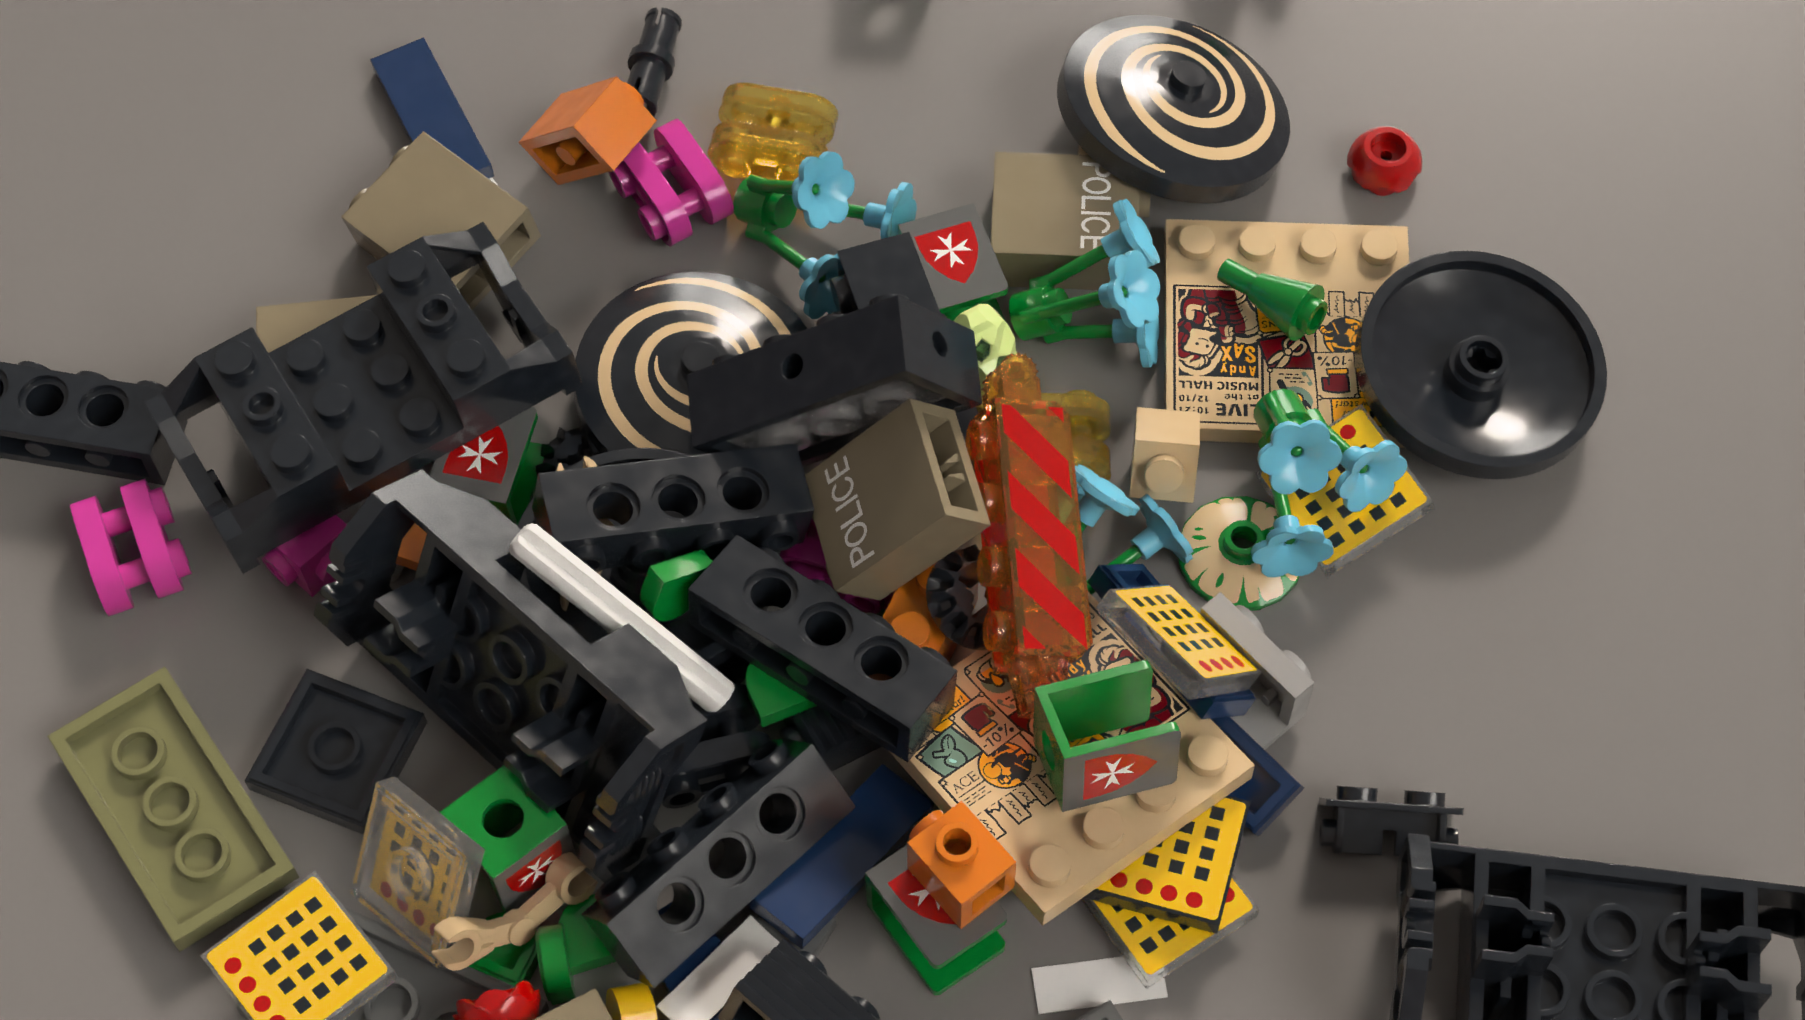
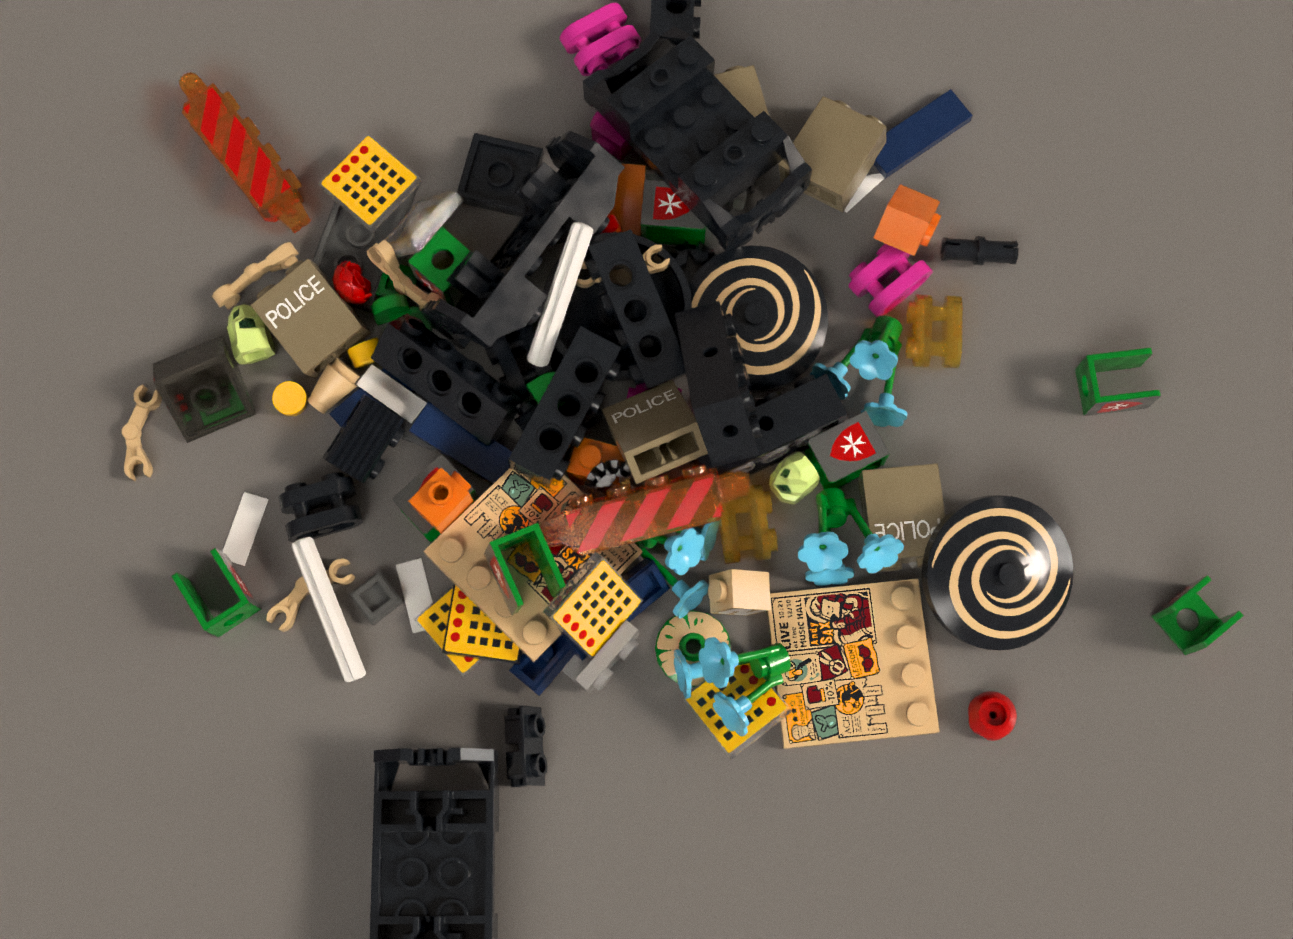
camera: 85 degrees right, 15 degrees up
(173, 808) = (454, 101): olive plate -> none
(668, 582) = (591, 319): green tile -> none
(1288, 303) = (857, 657): green cone -> none
(1480, 364) = (834, 782): black dish -> none

